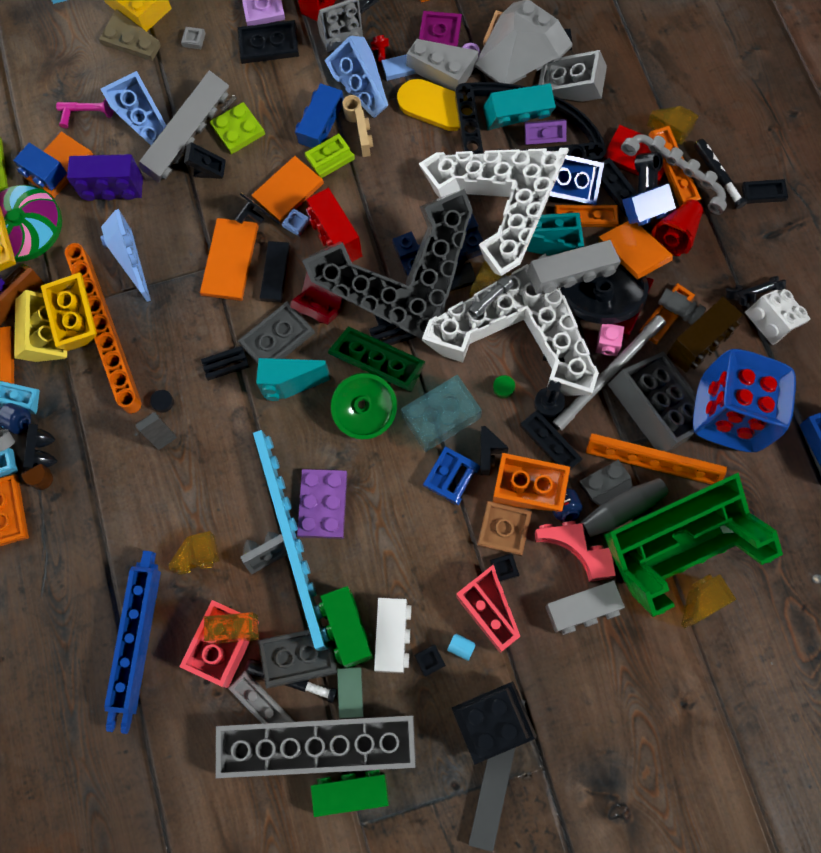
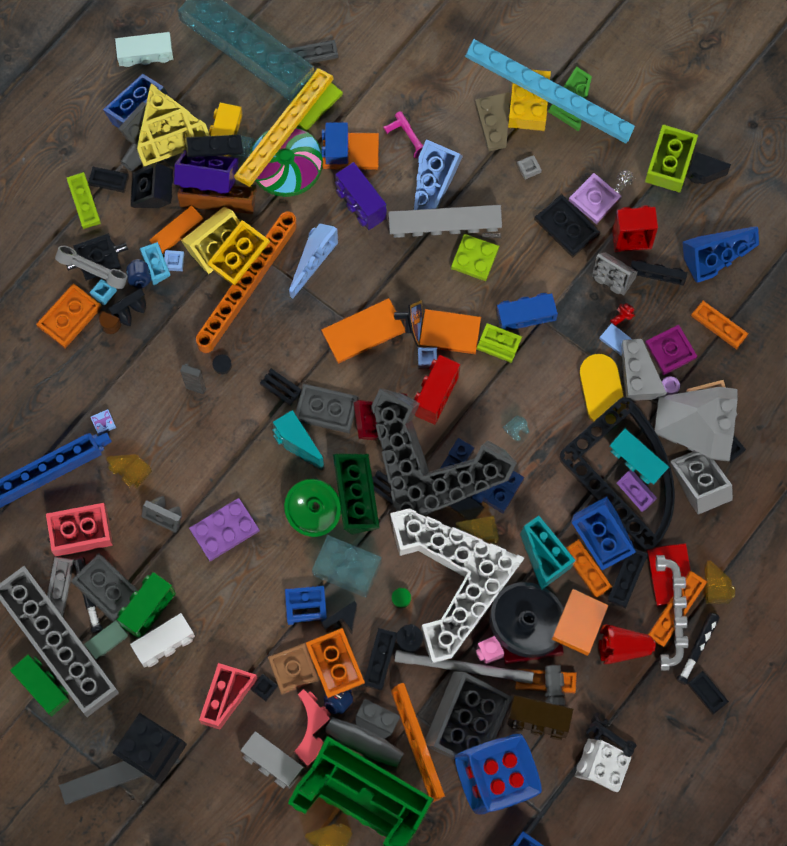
camera: 50 degrees right, 0 degrees up
(28, 378) = (174, 260): none -> light blue tile
(130, 549) = (103, 422): none -> tile
(204, 162) = (426, 256): black slope -> none
(231, 628) = (92, 529): clear yellow brick -> none
(274, 271) = (376, 370): black tile -> none
(293, 545) = (179, 528): medium azure plate -> none
(354, 113) = (542, 348): tan plate -> none
(356, 69) = (589, 310): light blue wedge -> none
(415, 189) = (515, 425): none -> clear light blue tile
(429, 660) = (164, 679): black tile -> none
(461, 646) = (187, 693): medium azure brick -> none
(503, 285) = (440, 537): dark grey bar -> none
(515, 174) = (572, 494): white wedge -> none
(573, 267) = (524, 585): light grey brick -> none
(648, 166) = (656, 589): black piece -> none
(648, 204) = (622, 609): brick -> none

